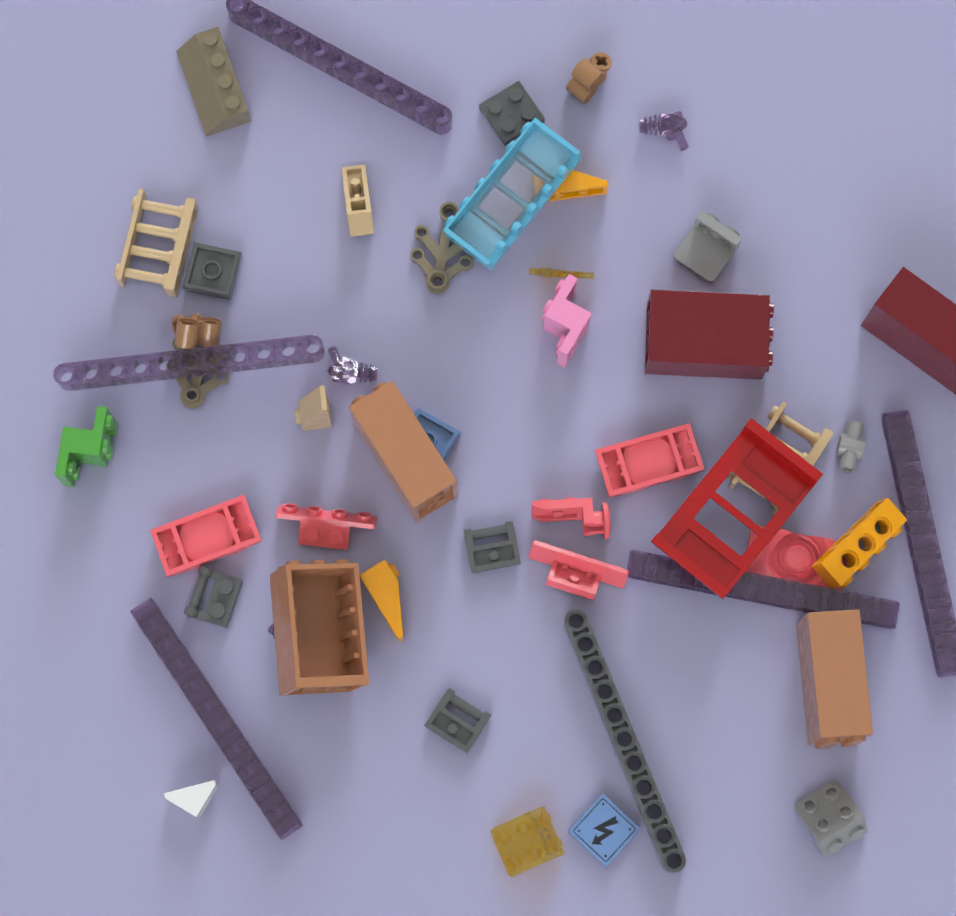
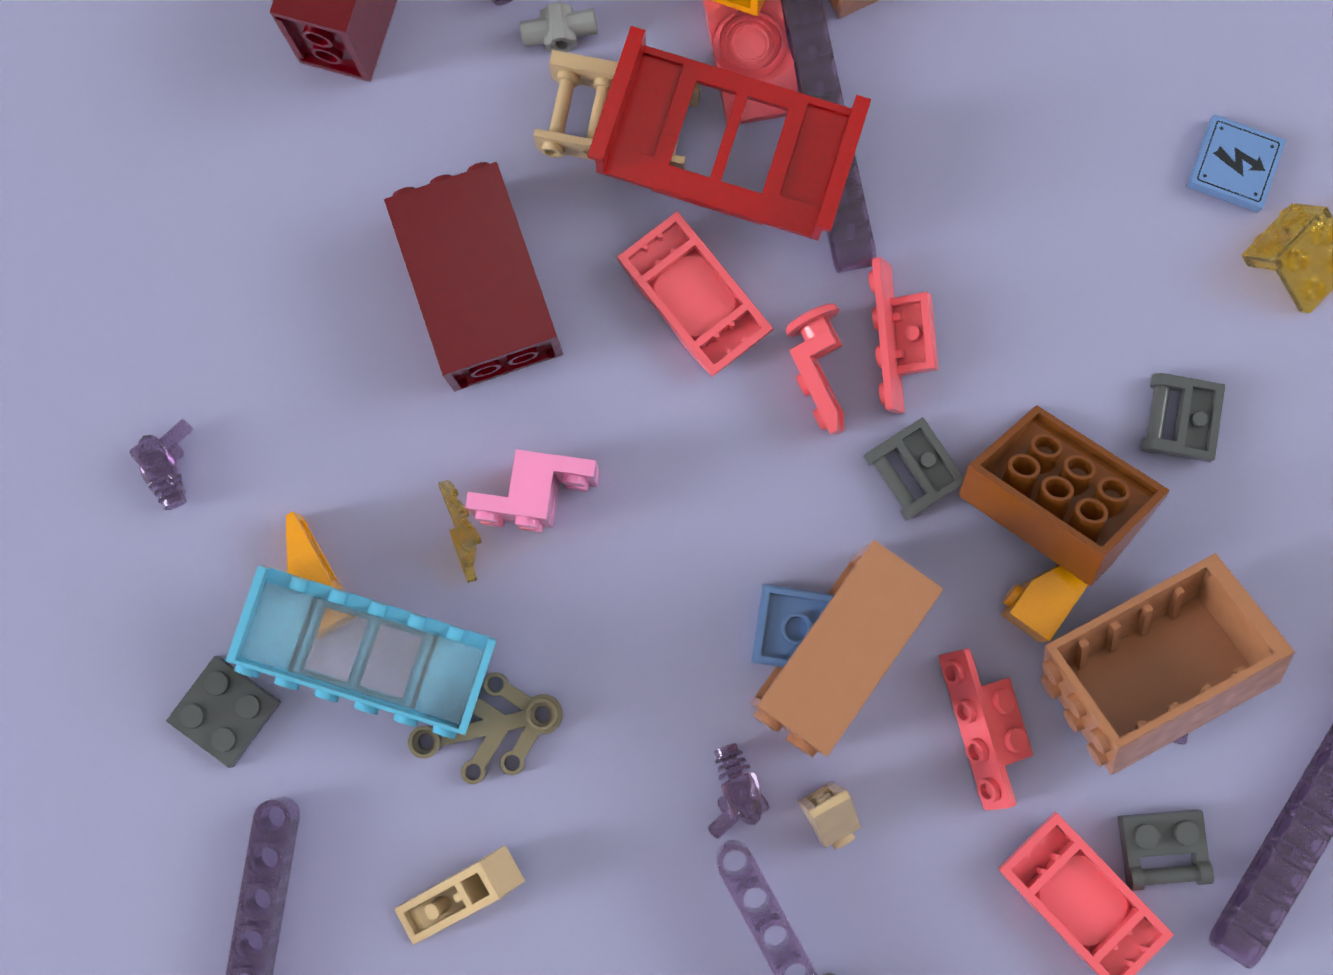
camera: 110 degrees left, 5 degrees up
(442, 620) = (1062, 493): none -> dark orange slope
(588, 76) = (120, 611): medium nougat piece -> none
(623, 753) = (1118, 166): dark grey beam -> none
(707, 247) = (334, 331): light grey bracket -> none

